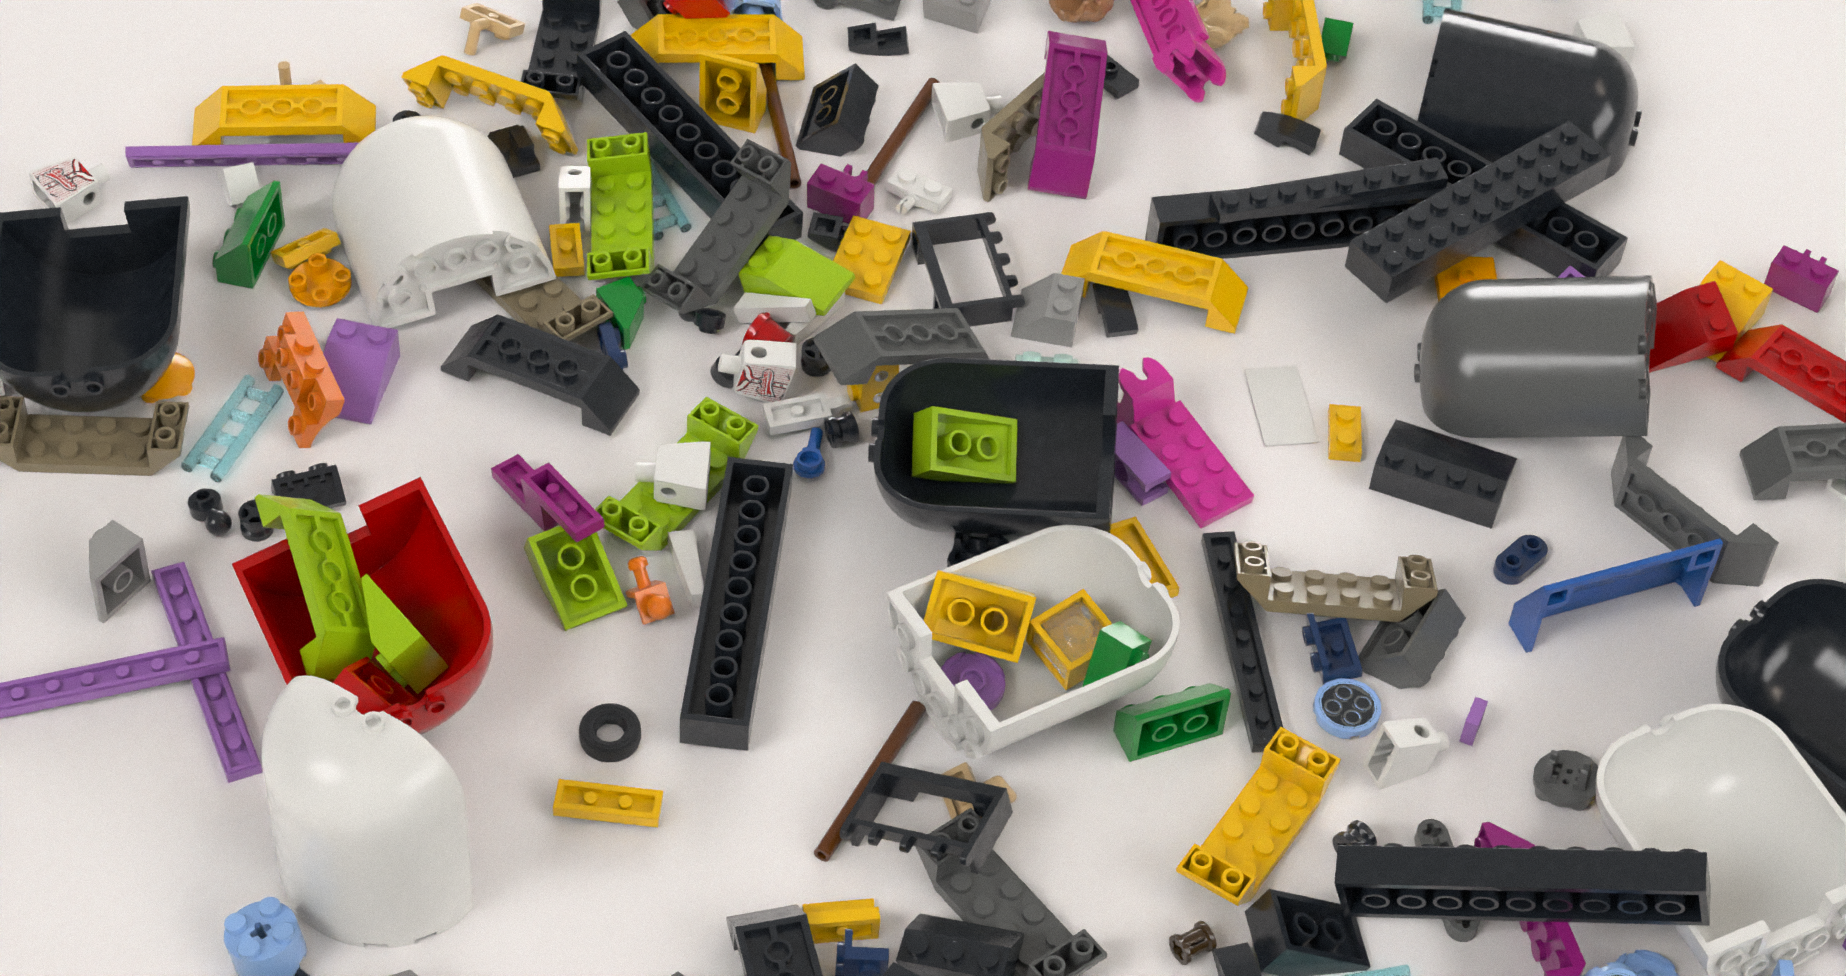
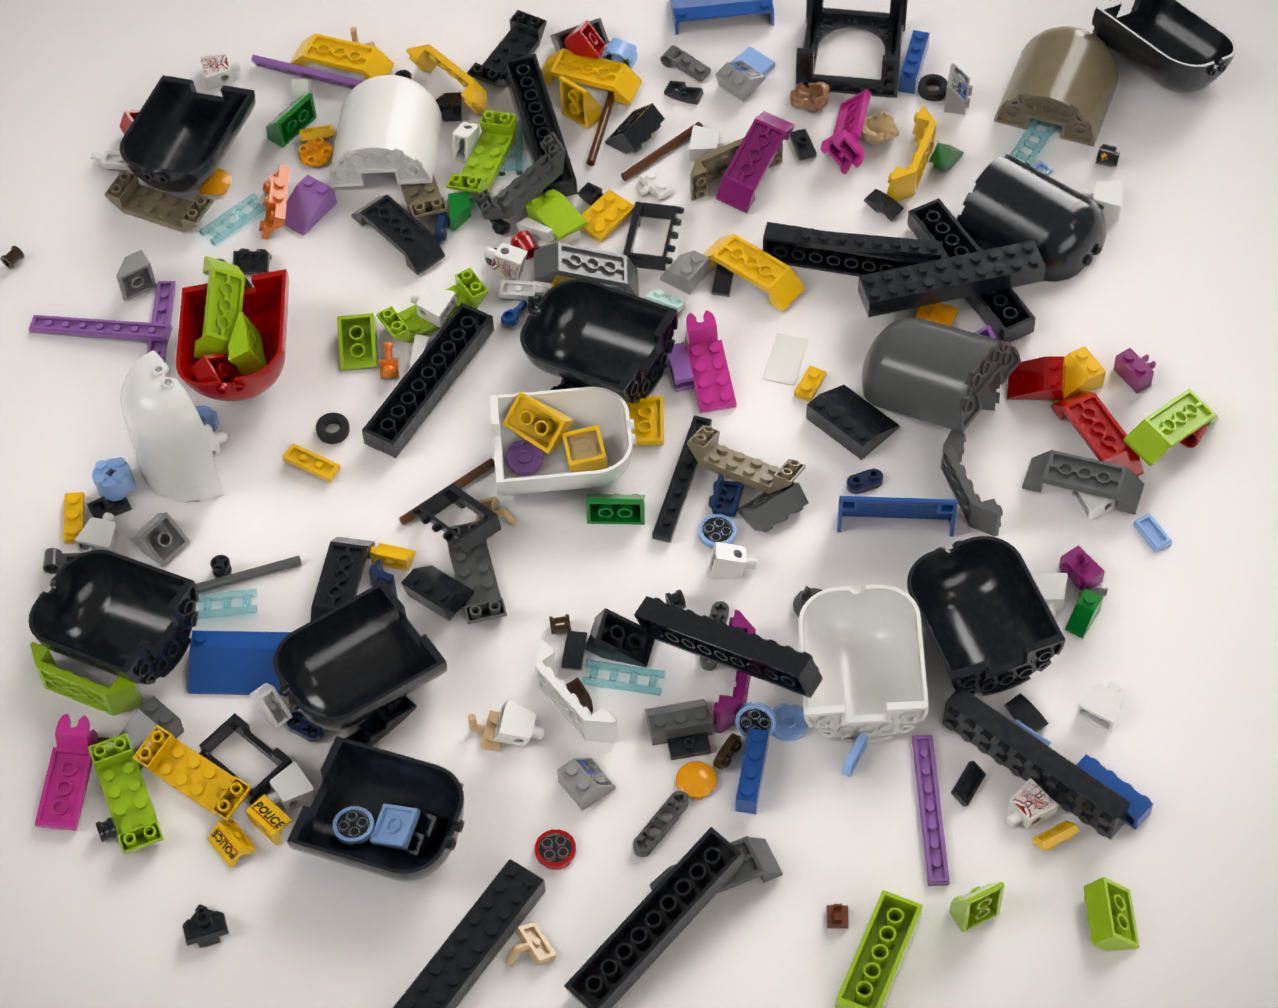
camera: 30 degrees right, 5 degrees up
(208, 507) = (198, 257): black plate -> none
(483, 18) = (478, 29): tan plate -> none
(547, 497) = (360, 298): magenta bracket -> none
(566, 249) = (449, 165): yellow plate -> none
(840, 193) = (609, 175): magenta brick -> none
(964, 446) = (588, 332): lime slope -> none
(1115, 650) = (594, 459): green slope -> none
(1262, 819) = (631, 576): yellow slope -> none
(1473, 721) = (779, 558): medium lavender tile -> none

